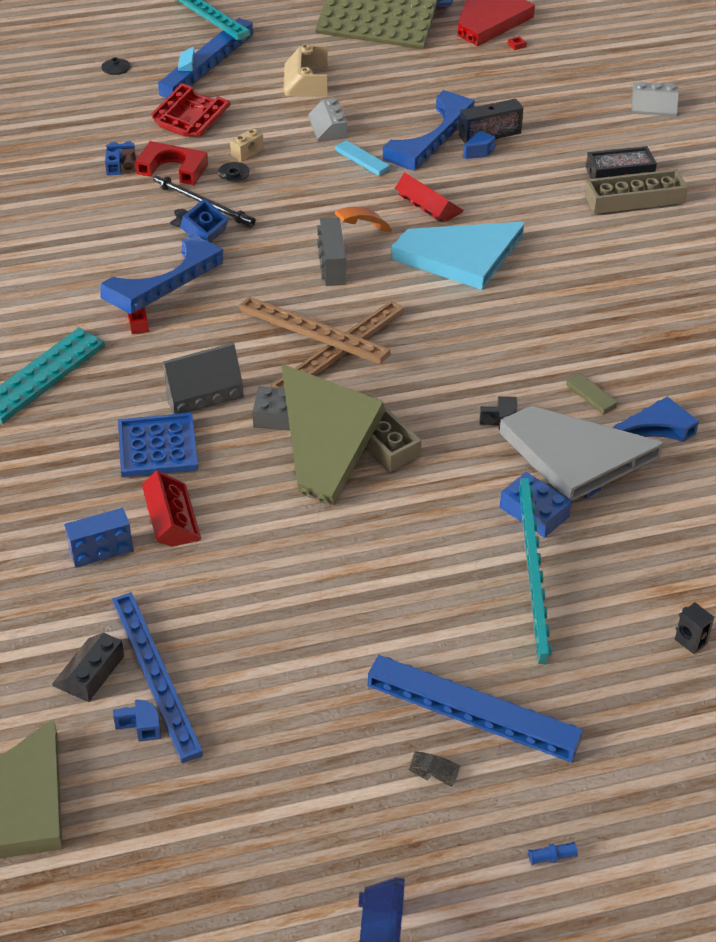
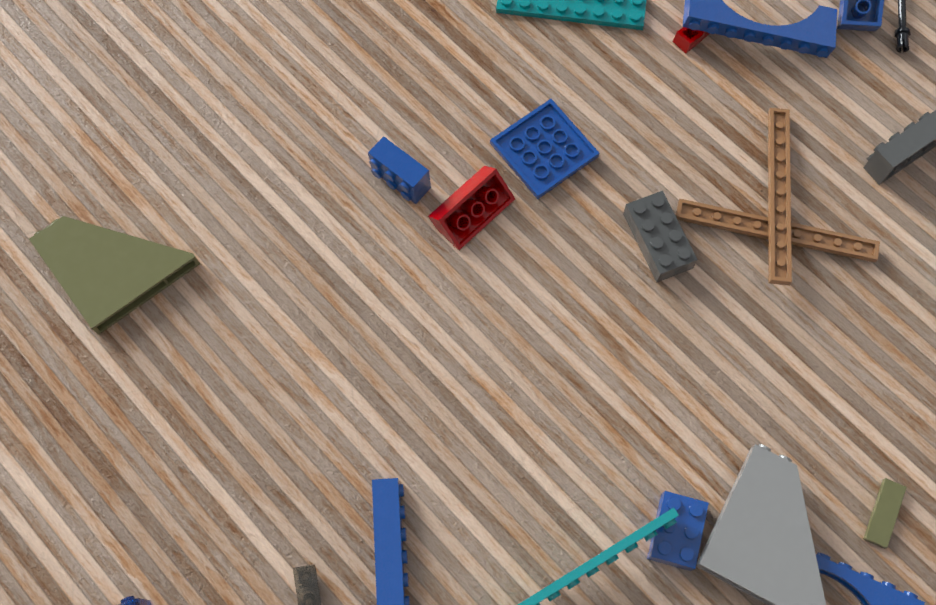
camera: 65 degrees right, 25 degrees up
(90, 666) = (270, 247): black slope -> none
(142, 716) = (239, 322): blue brick -> none
(157, 678) = (287, 304): blue plate -> none
(203, 379) = (636, 139): dark grey slope -> none
(327, 431) = (637, 286): olive slope -> none
(393, 442) = (677, 337): dark tan brick -> none
(492, 415) = (787, 439): black brick -> none

